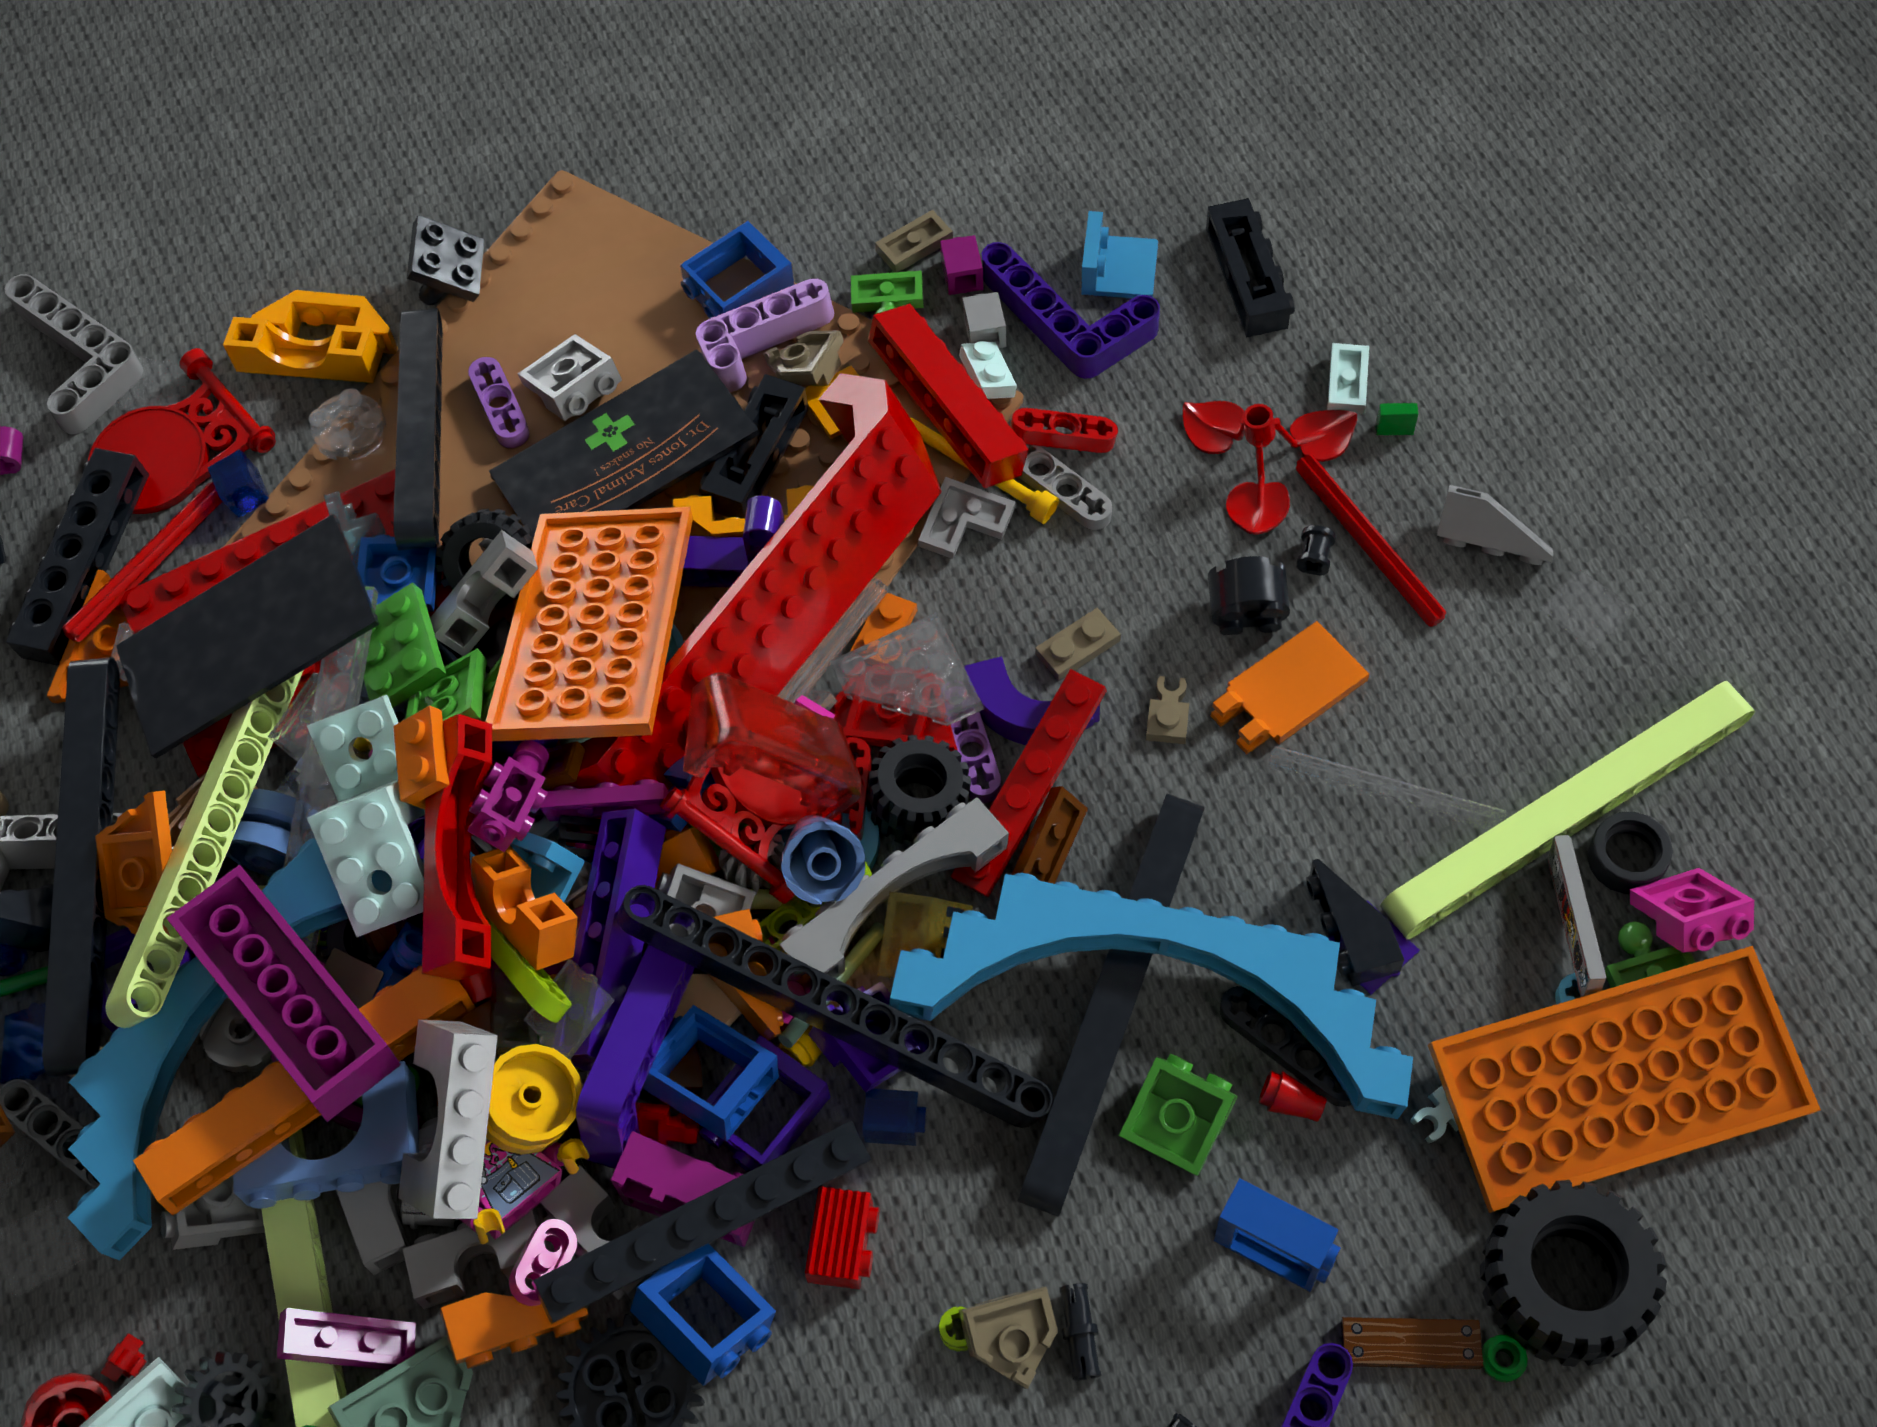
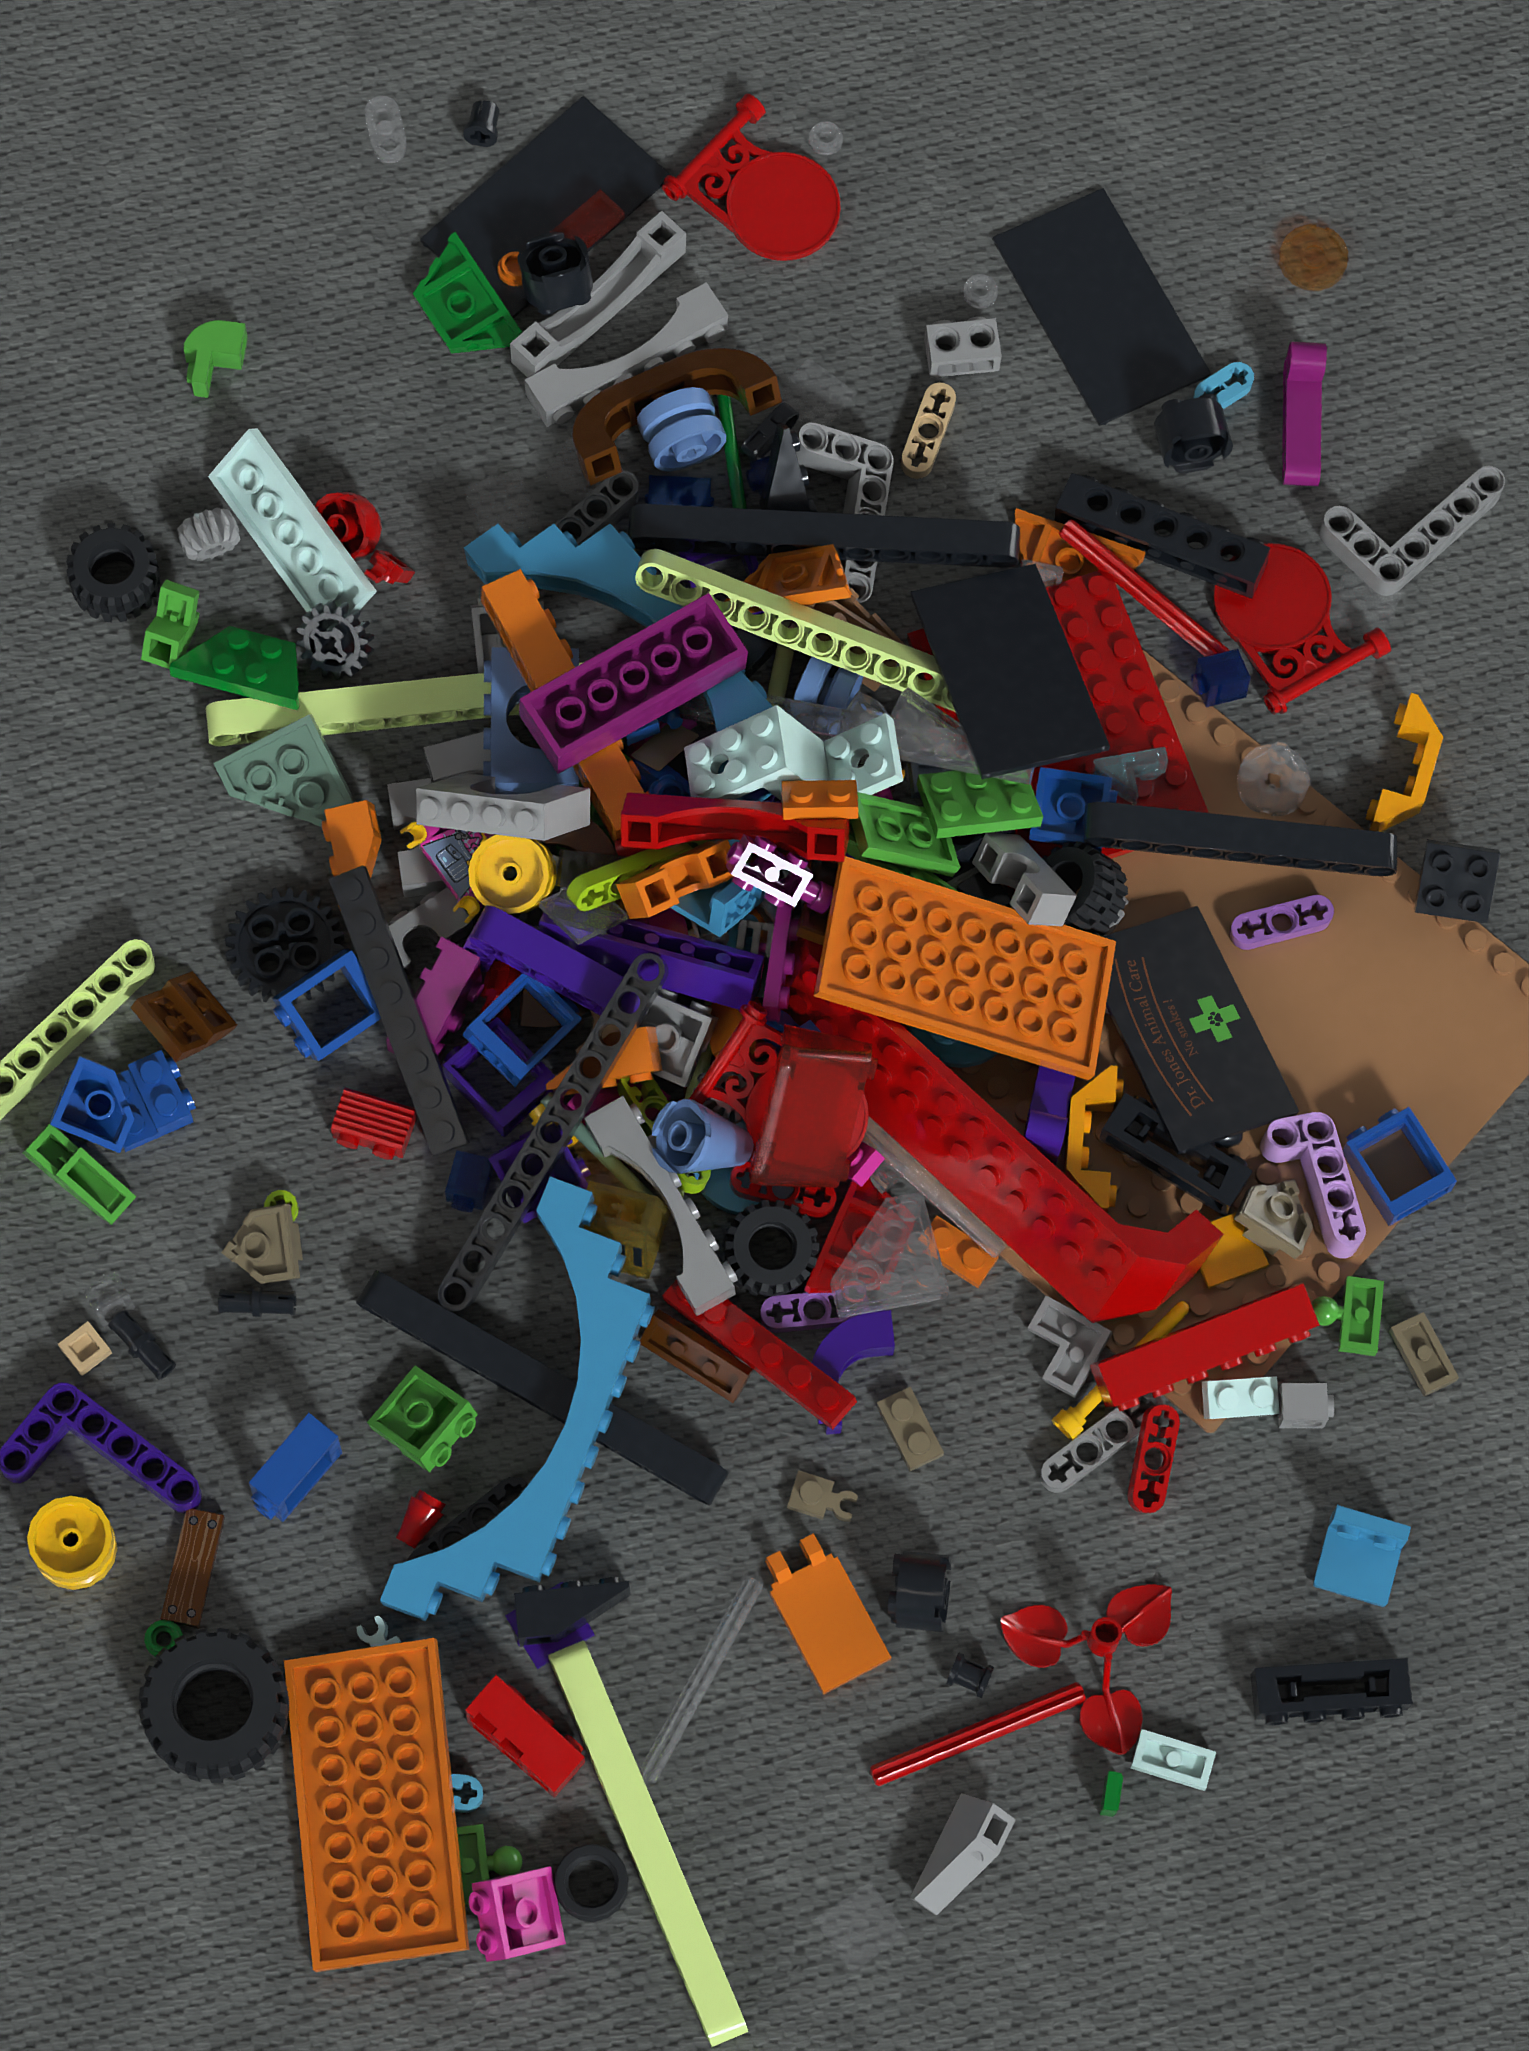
camera: 90 degrees right, 10 degrees up
(264, 349) = (1369, 741): light orange arch -> none
(344, 1339) = (363, 731): plate -> none
(537, 1260) = (390, 881): plate -> none
(571, 377) = (1294, 990): light grey plate -> none
(961, 265) = (1382, 1395): magenta brick -> none
(1080, 347) = (1297, 1481): dark purple beam -> none
(1501, 940) = (525, 1736): none -> red wedge
(1576, 916) = (532, 1806): light grey tile -> none

